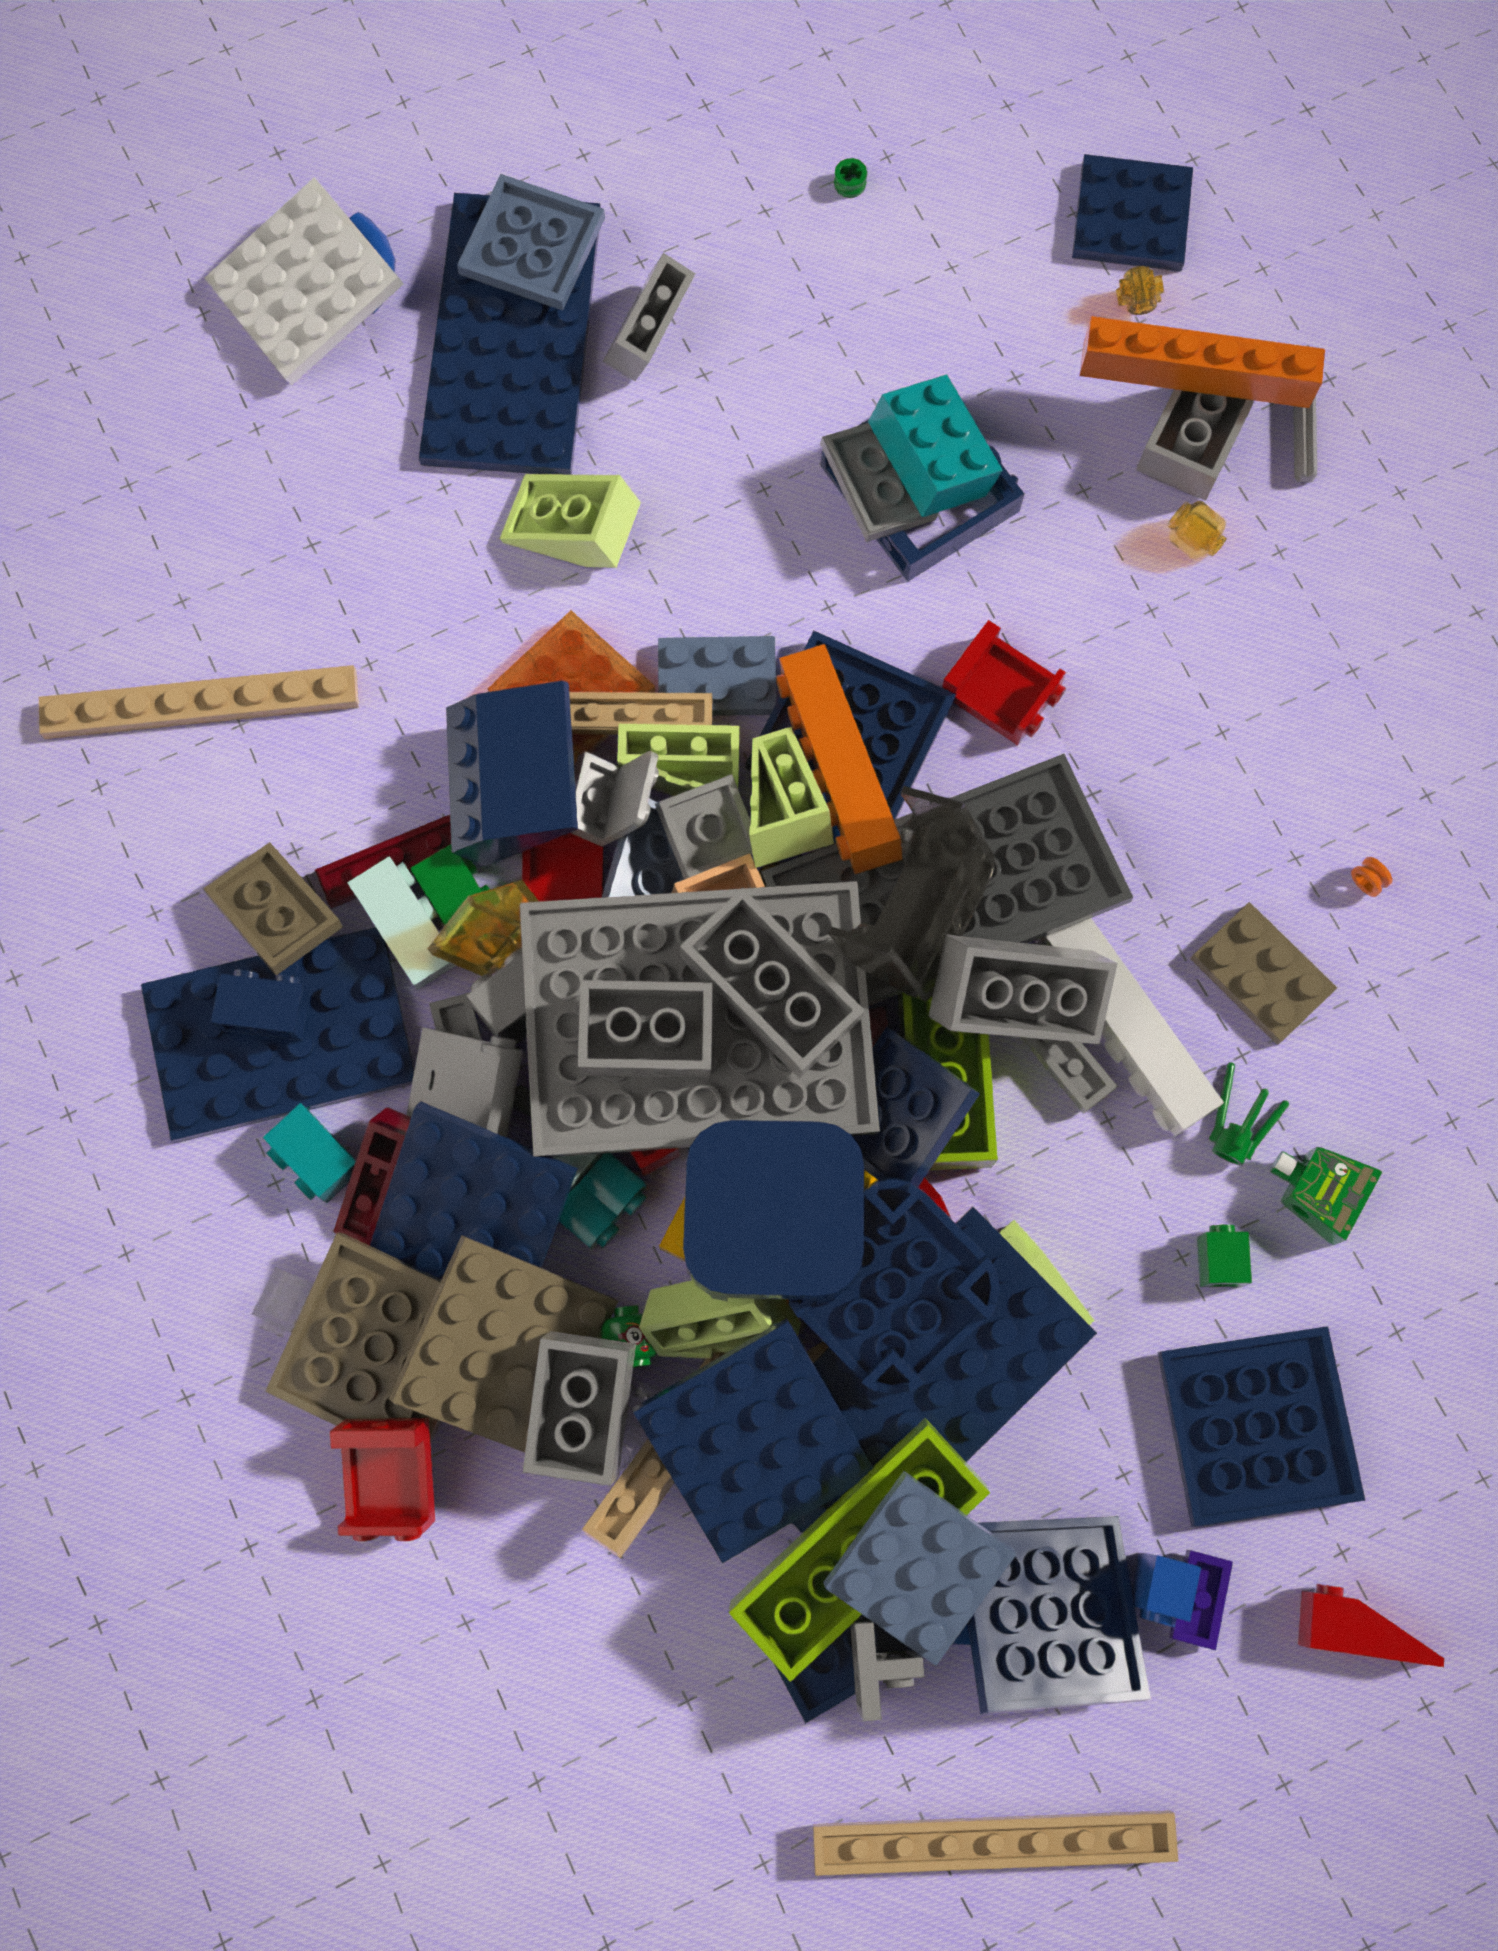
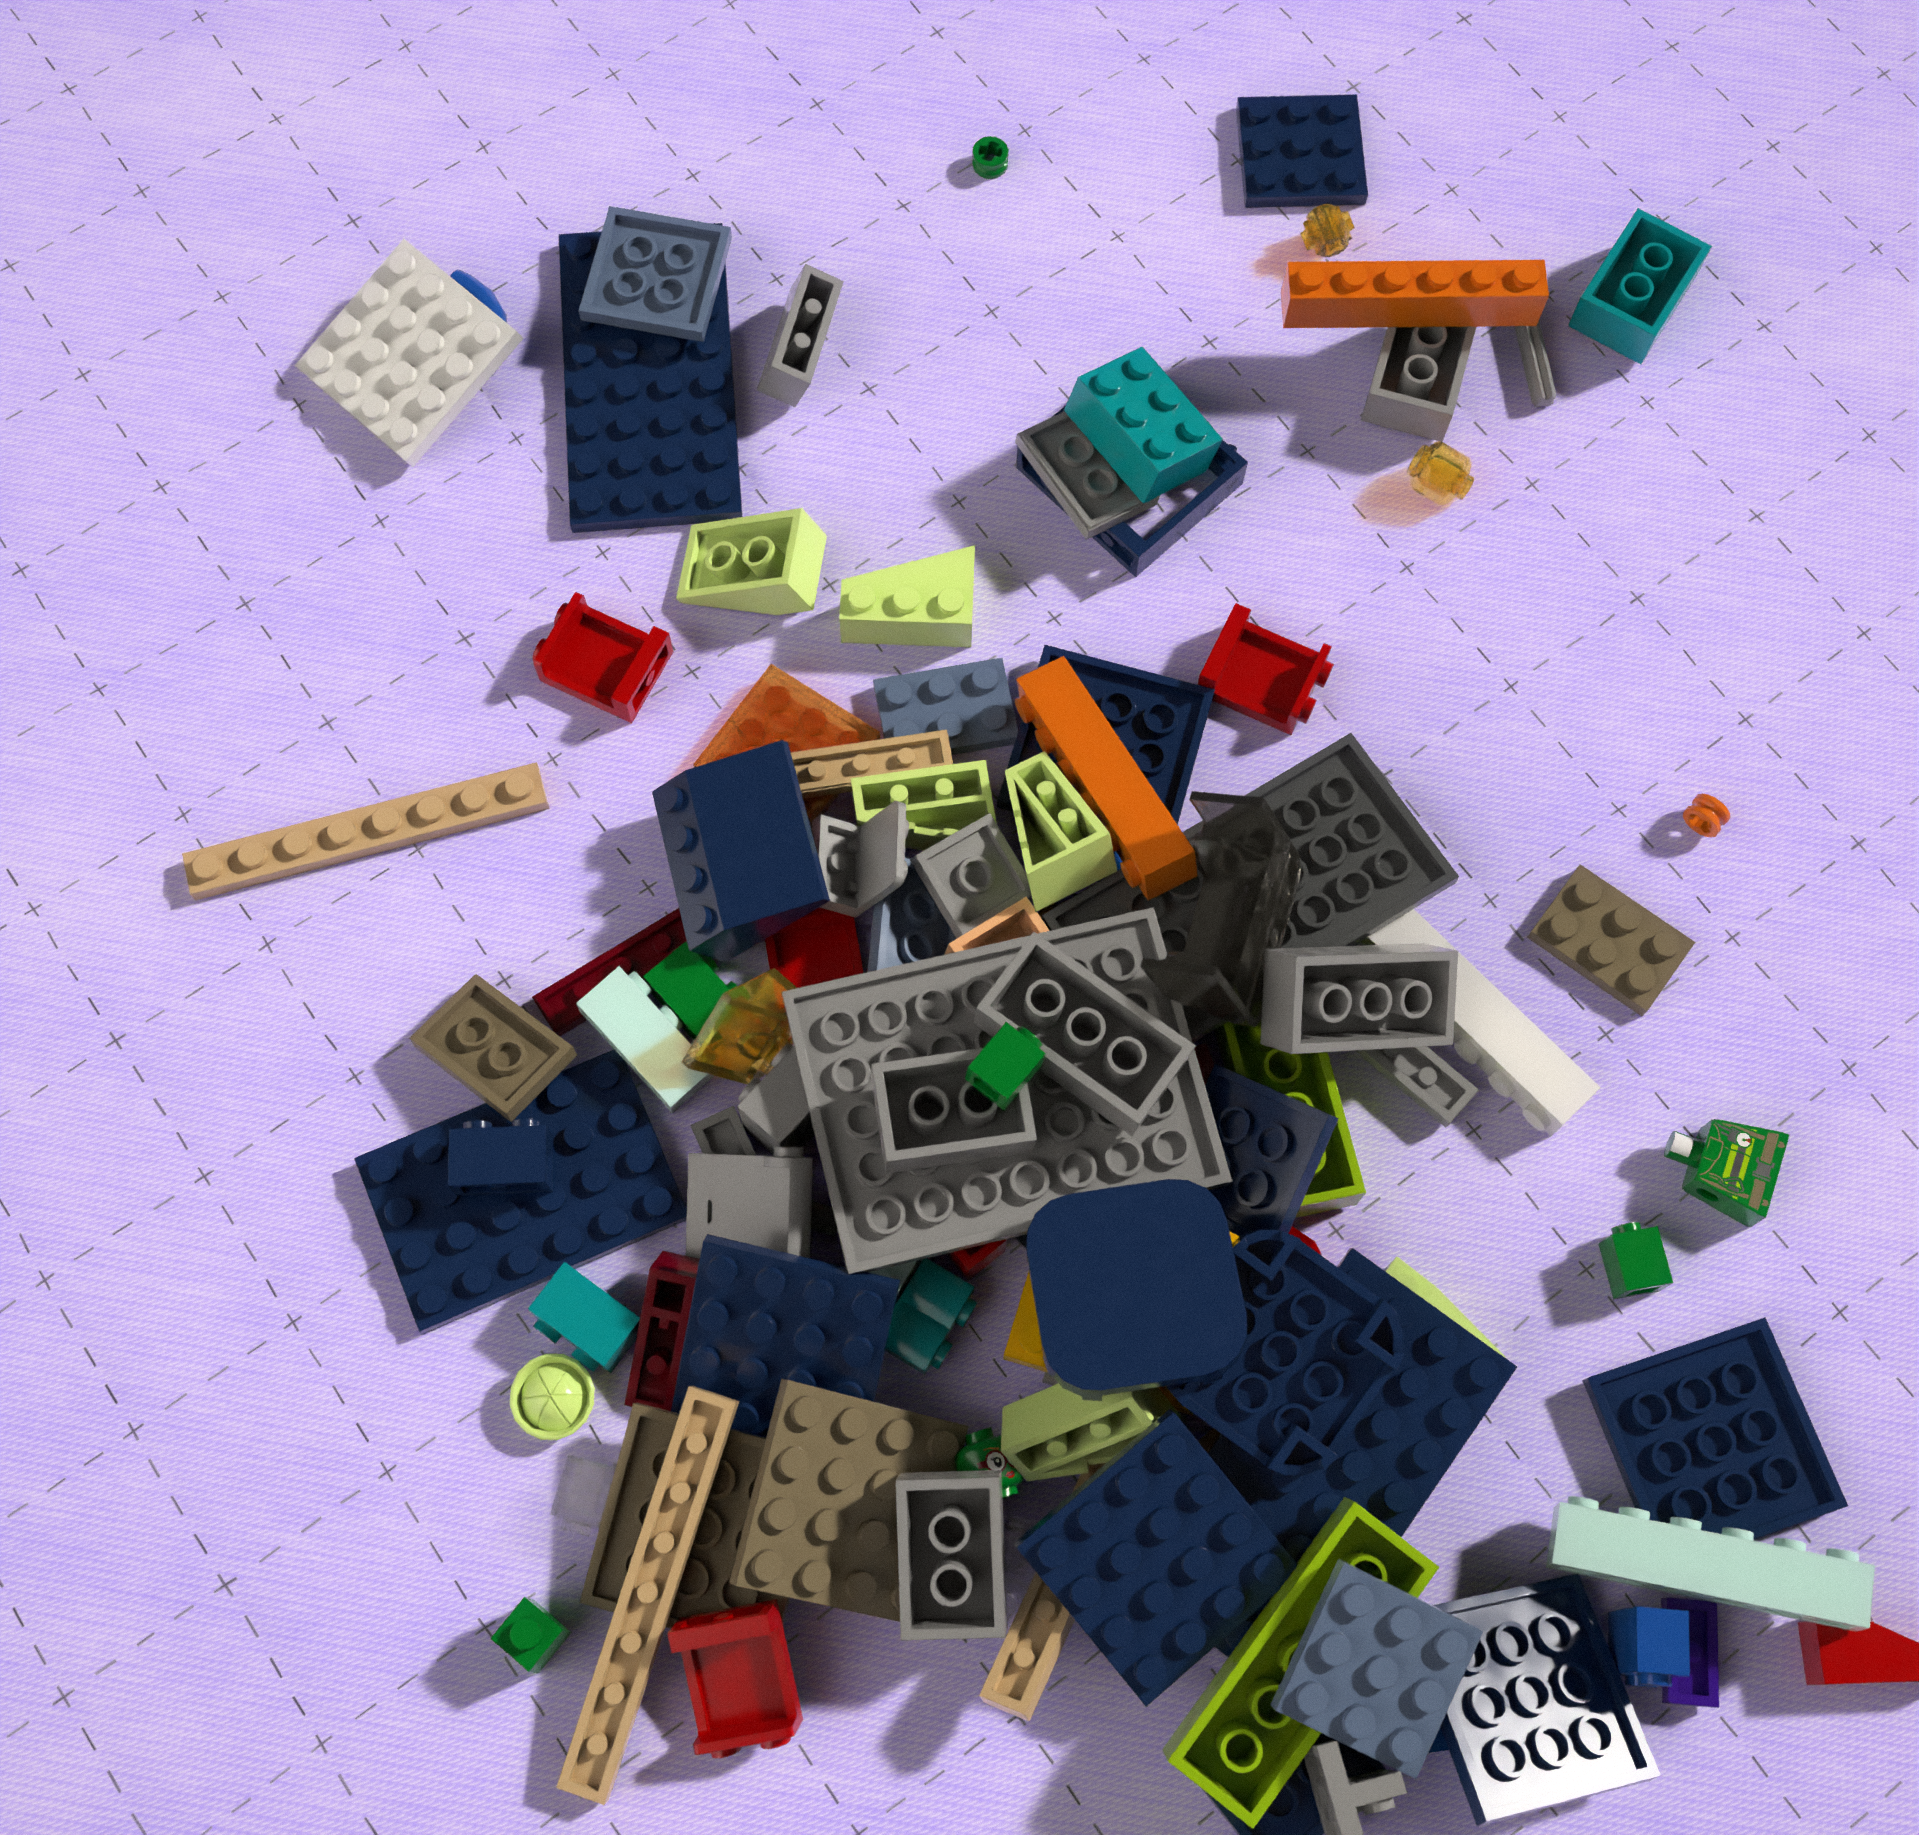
camera: 10 degrees left, 5 degrees down
(220, 1411) = (531, 1635): none -> green brick
(272, 1214) = (552, 1396): none -> yellowish green hat
(321, 1394) = (647, 1595): none -> tan plate
(425, 581) = (601, 658): none -> red panel
(694, 1000) = (1006, 1064): none -> green brick
(704, 574) = (912, 603): none -> yellowish green wedge
(1232, 1531) = (1711, 1565): none -> light aqua brick
(1234, 1142) = (1620, 1130): green plant -> none
(1413, 384) = (1639, 286): none -> teal brick

